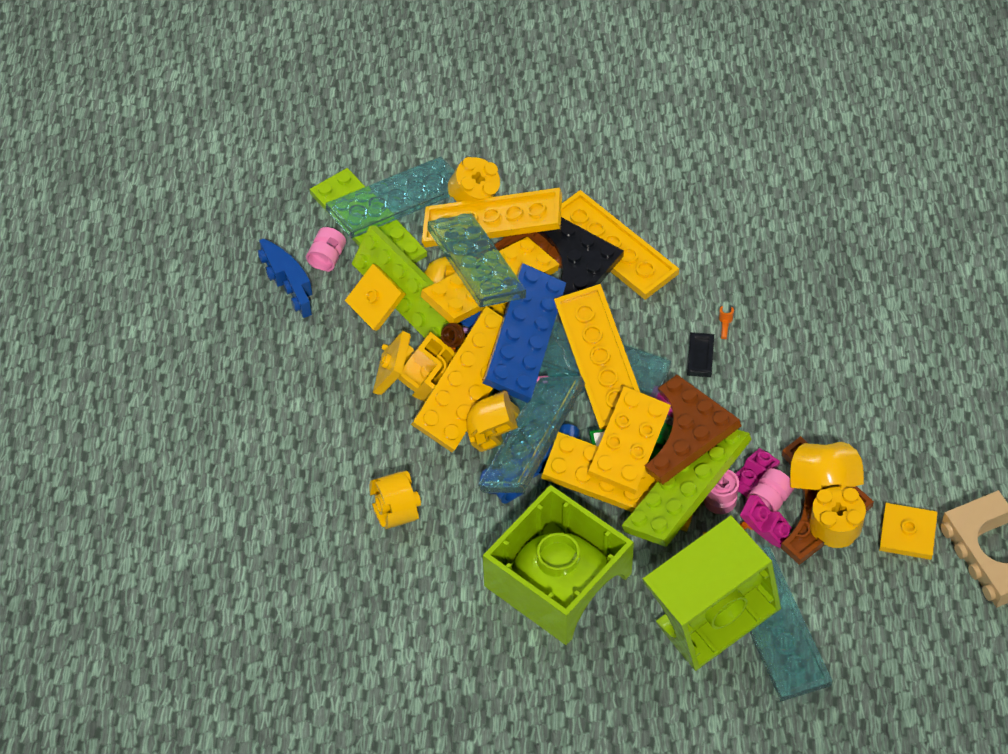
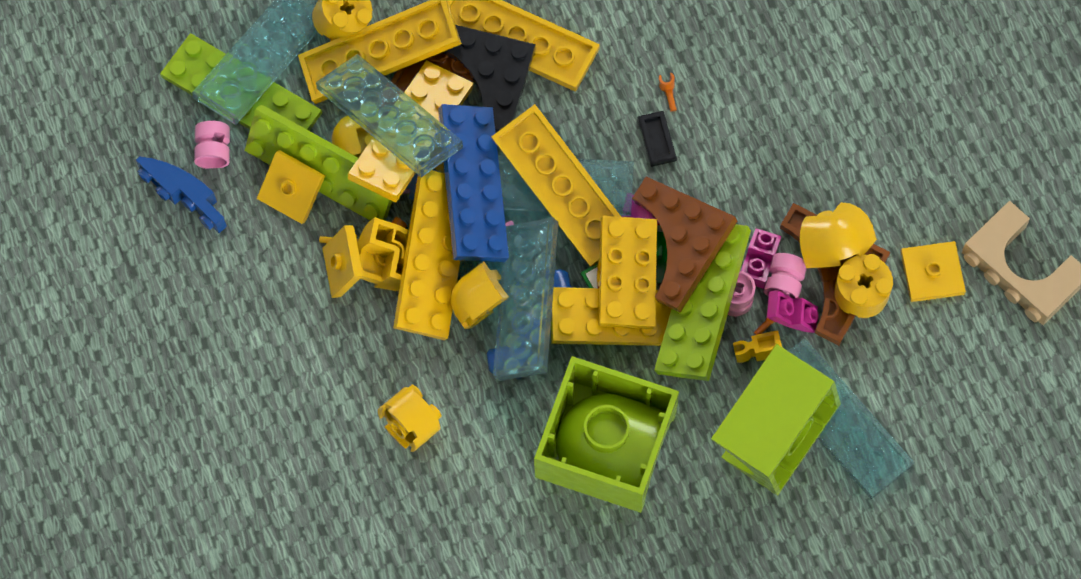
camera: 20 degrees left, 15 degrees up
(448, 332) = (396, 217): reddish brown plate -> none

